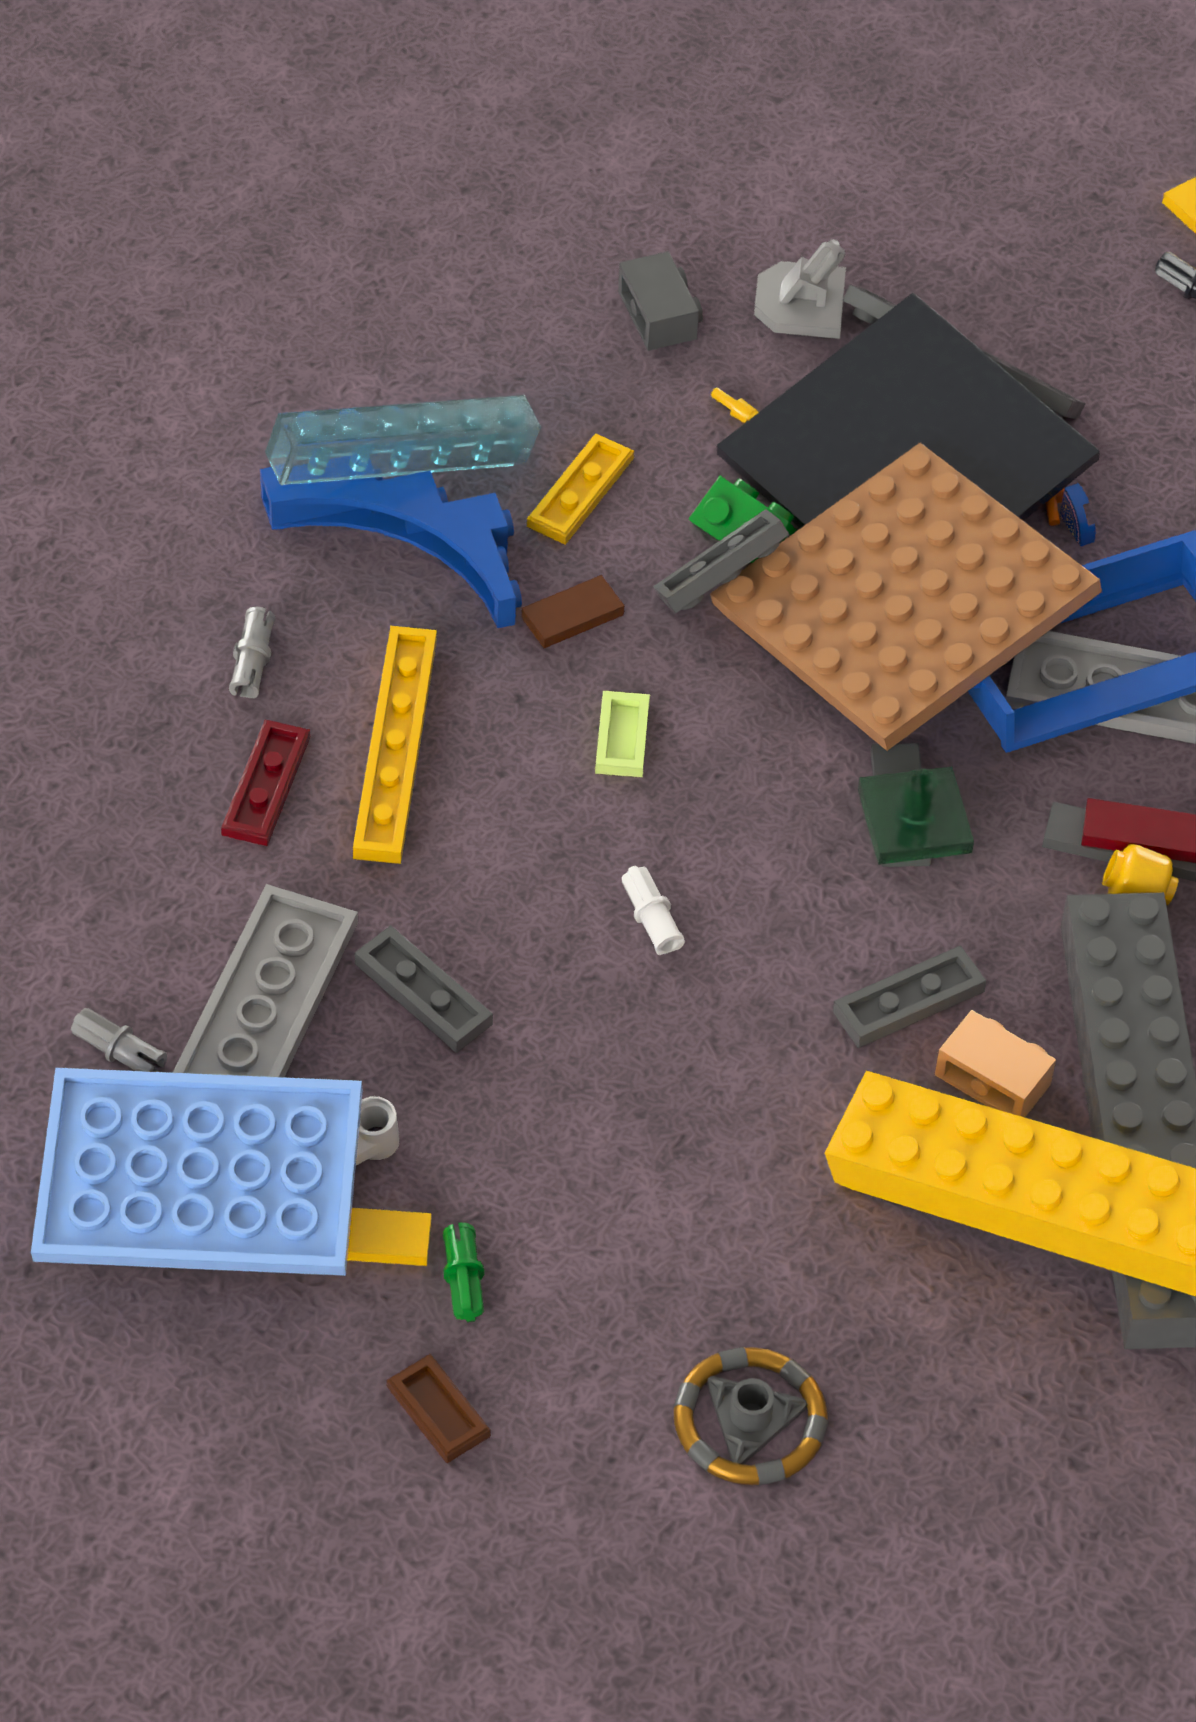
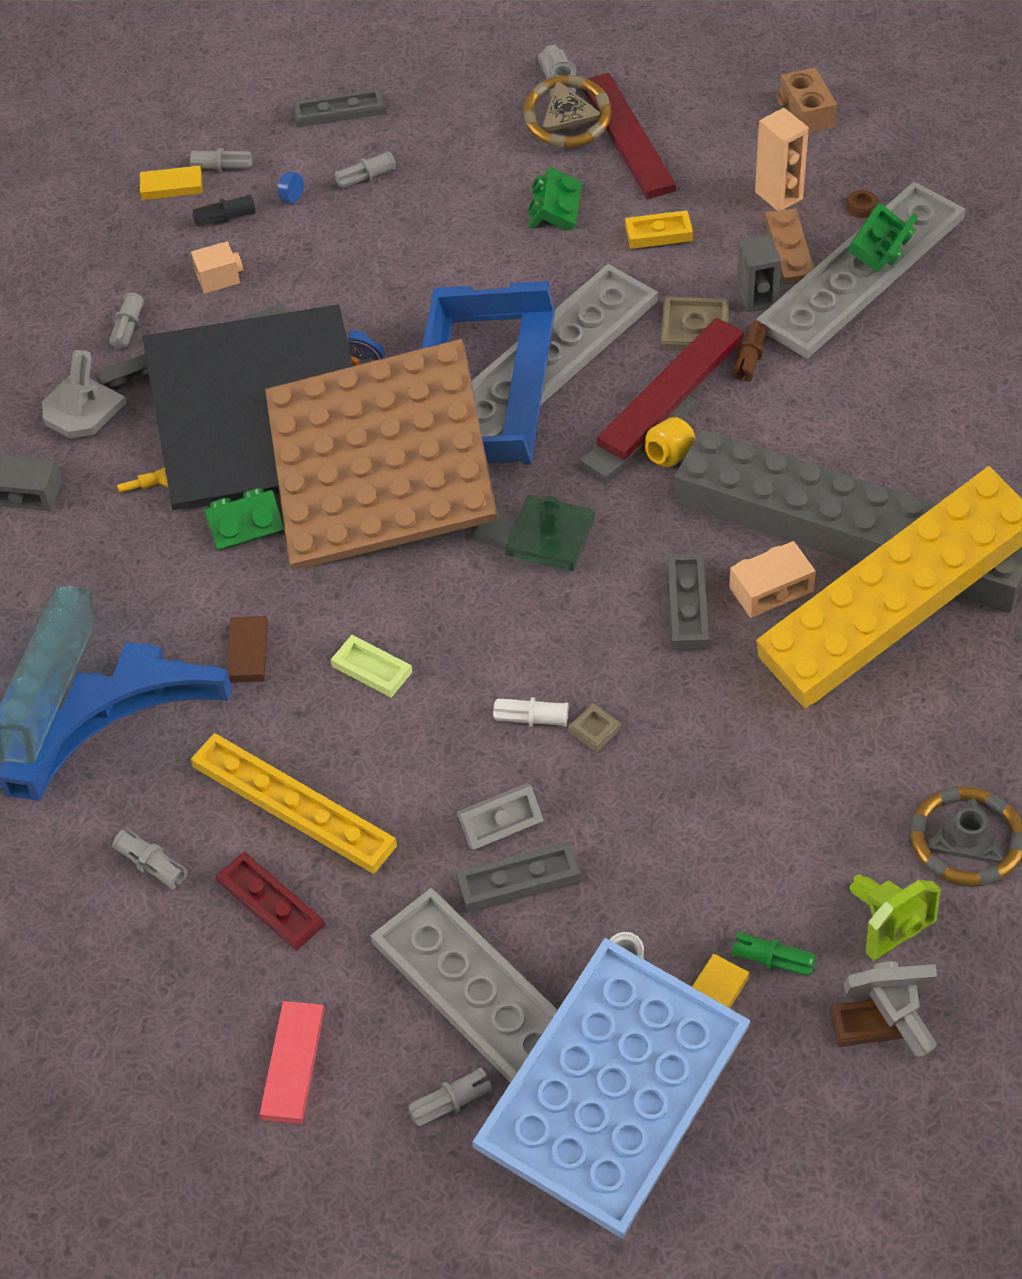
camera: 55 degrees left, 0 degrees up
(87, 889) = (292, 1062): none -> coral tile
(459, 1408) = (896, 997): none -> light grey piece
(489, 937) = (500, 816): none -> light grey plate
(577, 1366) = (895, 911): none -> lime piece
(580, 489) = (144, 599): yellow tile -> none
(671, 980) = (594, 727): none -> dark tan tile
(721, 561) = (277, 541): dark grey plate -> none
(958, 278) = (126, 320): none -> light grey axle
(1096, 318) = (216, 267): none -> light nougat brick

